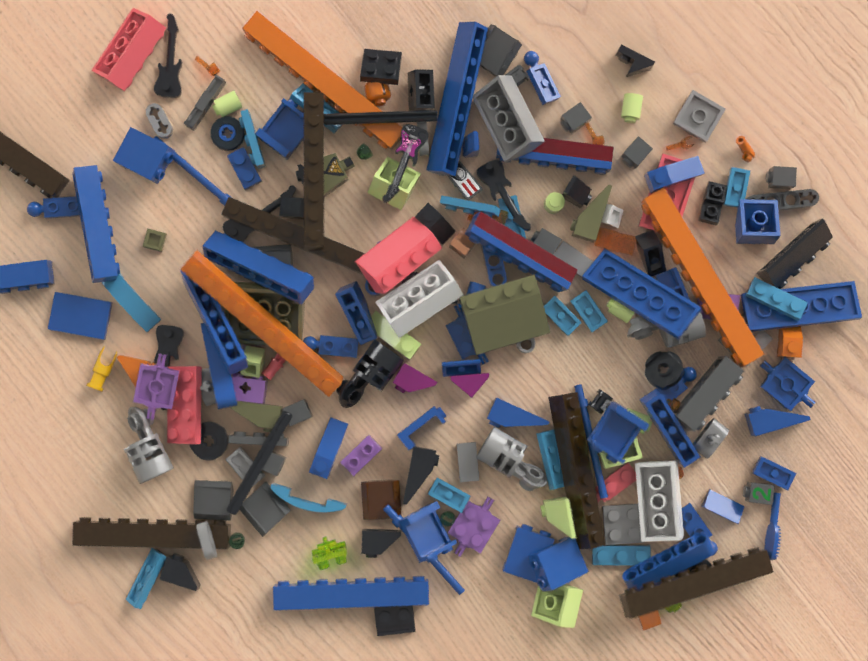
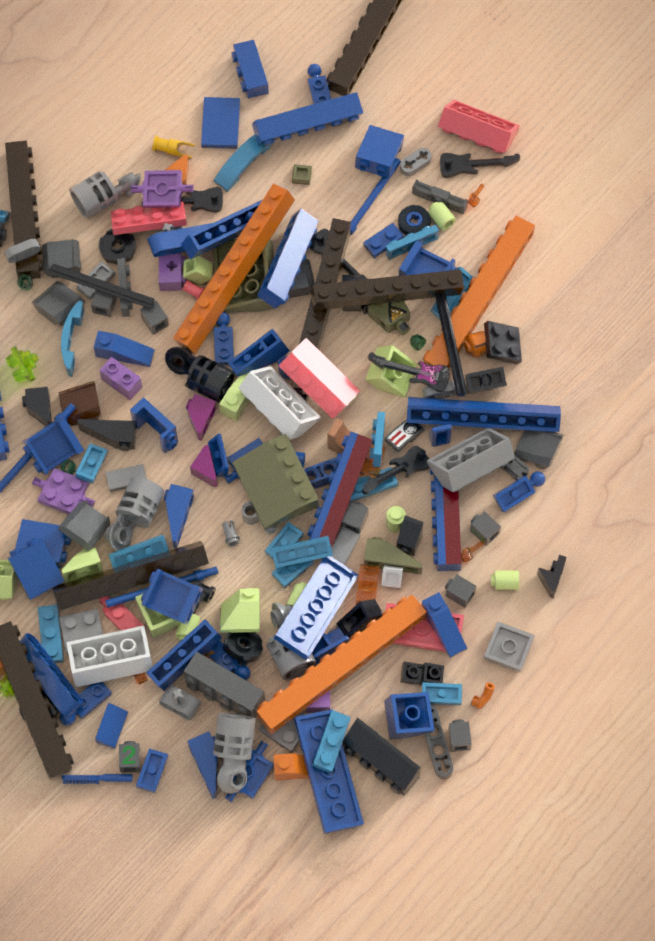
camera: 80 degrees right, 20 degrees down
(259, 414) = (149, 280): olive slope -> none
(435, 223) = (358, 411): black slope -> none
(519, 510) = (85, 525): none -> dark grey slope
(543, 366) = (232, 538): none -> light grey pin
(580, 299) = (302, 551): none -> dark azure plate
(631, 368) = (241, 612): none -> yellowish green slope
(683, 144) = (477, 634): clear orange hand -> none
(775, 392) = (234, 744): none -> light grey cylinder

